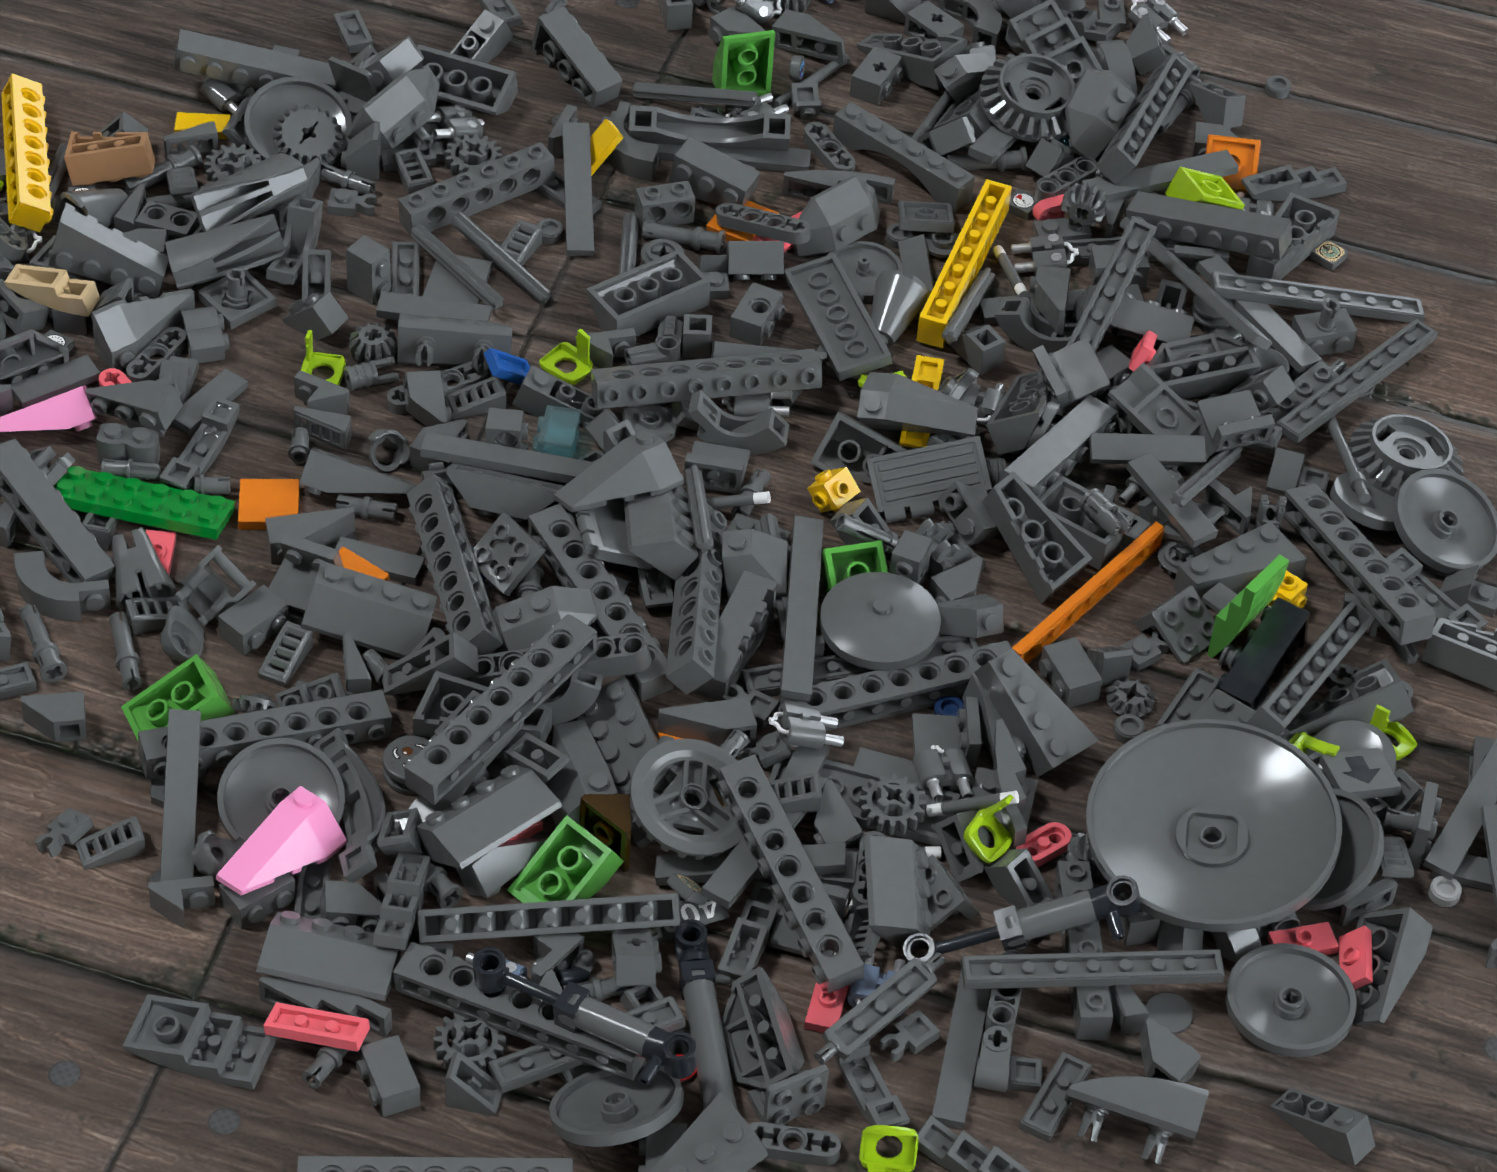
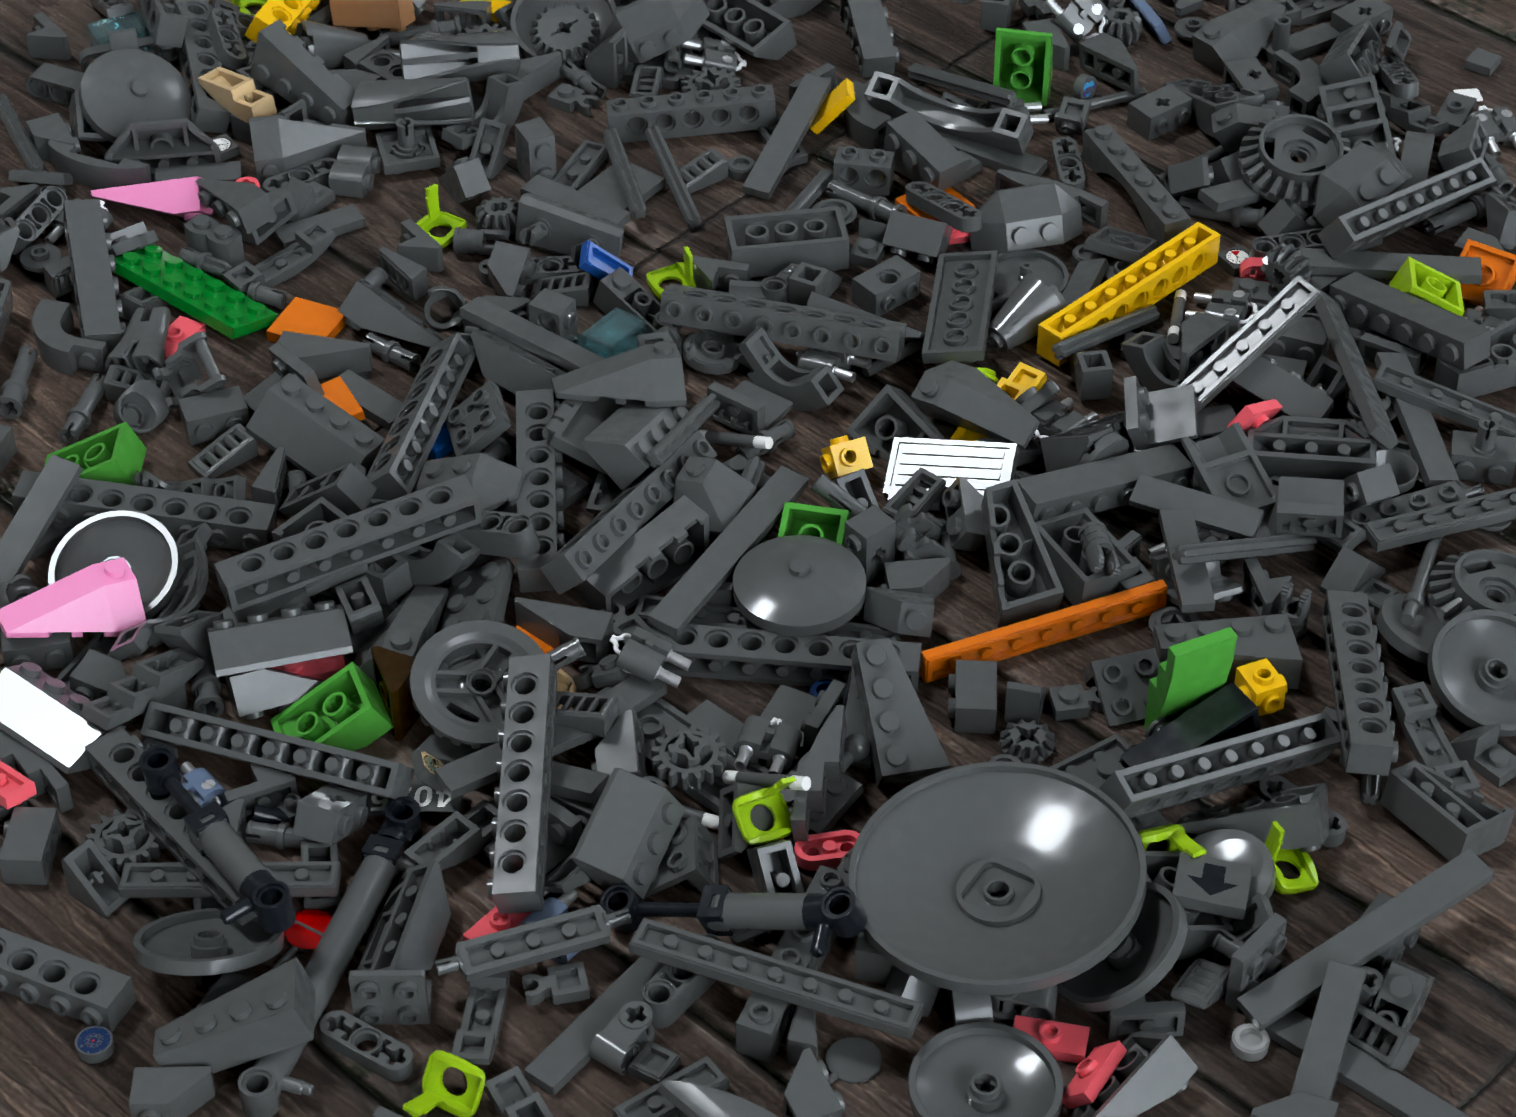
camera: 30 degrees right, 5 degrees down
(902, 524) = (912, 486): none -> dark grey slope

